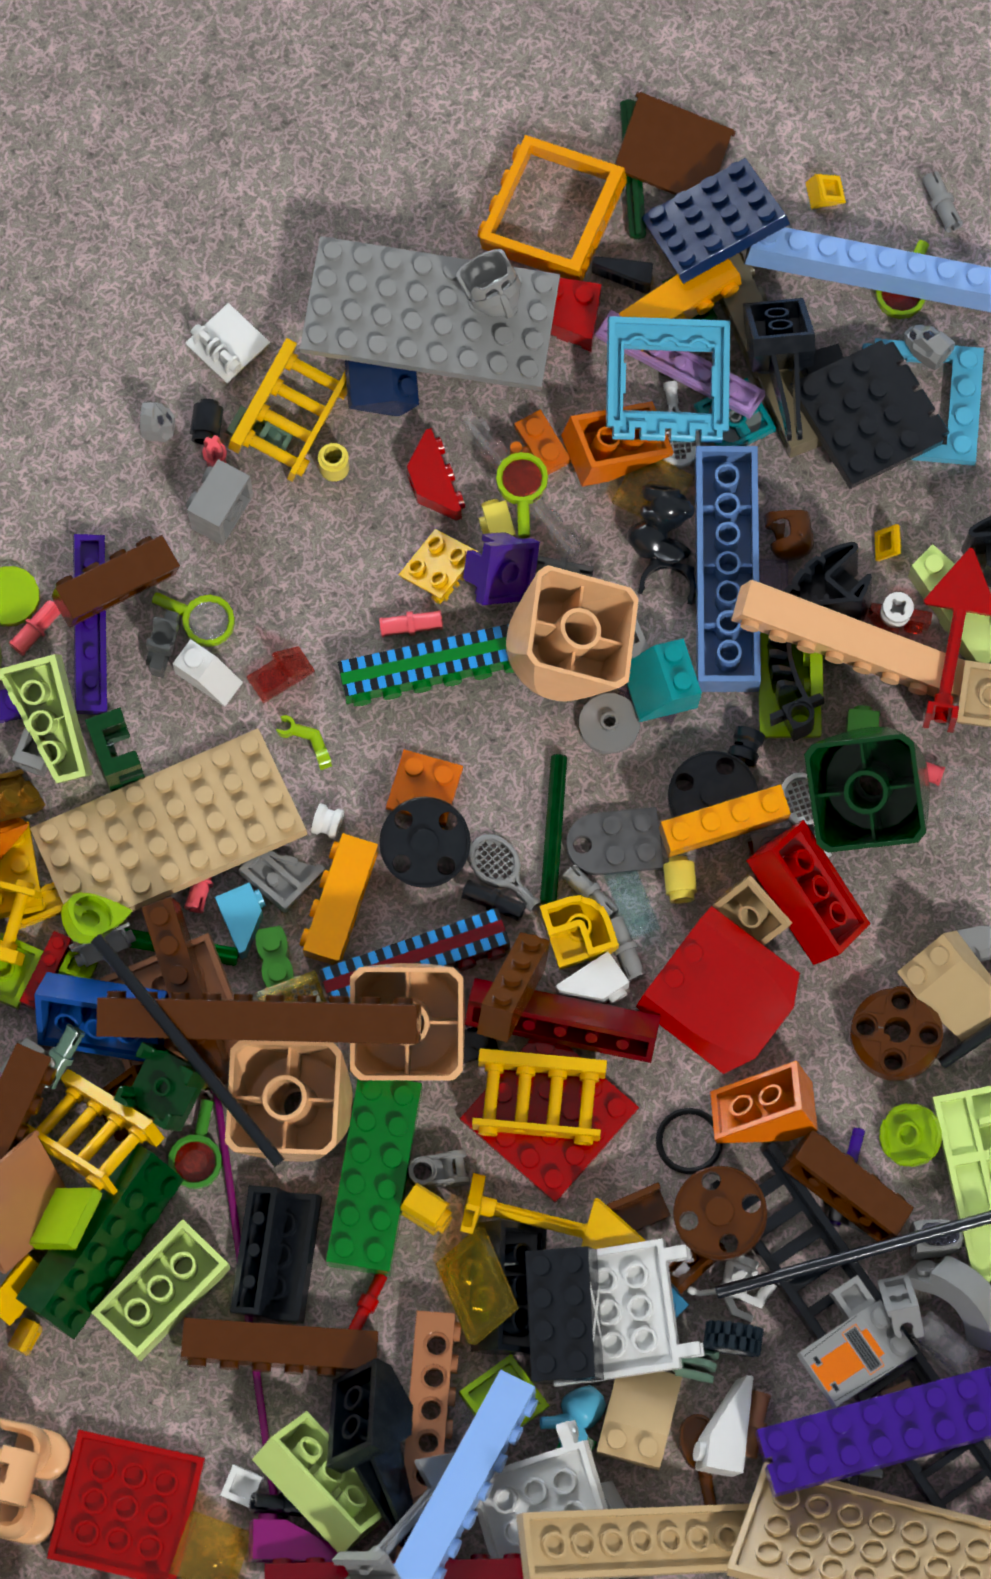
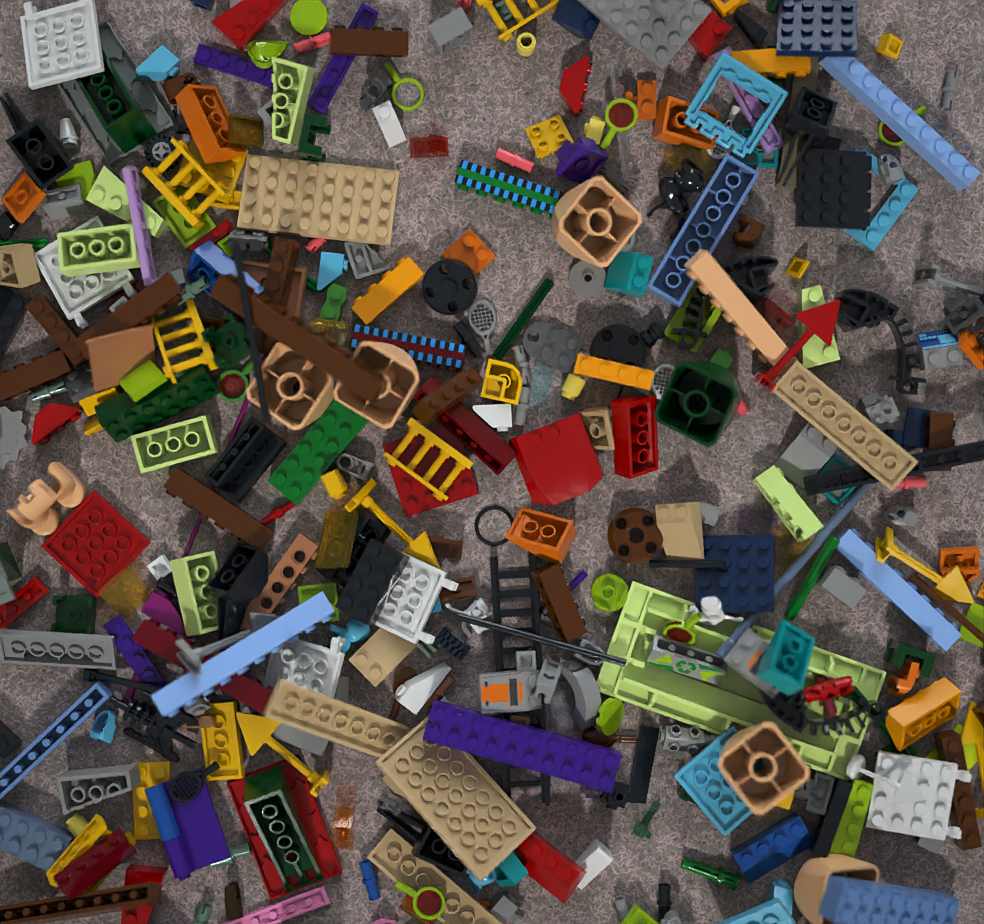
camera: 30 degrees right, 15 degrees up
(92, 916) = (247, 226): lime piece -> none
(311, 734) = (426, 193): lime arm -> none
(327, 821) = (406, 244): white wheel -> none
(720, 1213) = (484, 577): reddish brown piece -> none
(891, 614) = (774, 311): white wheel -> none

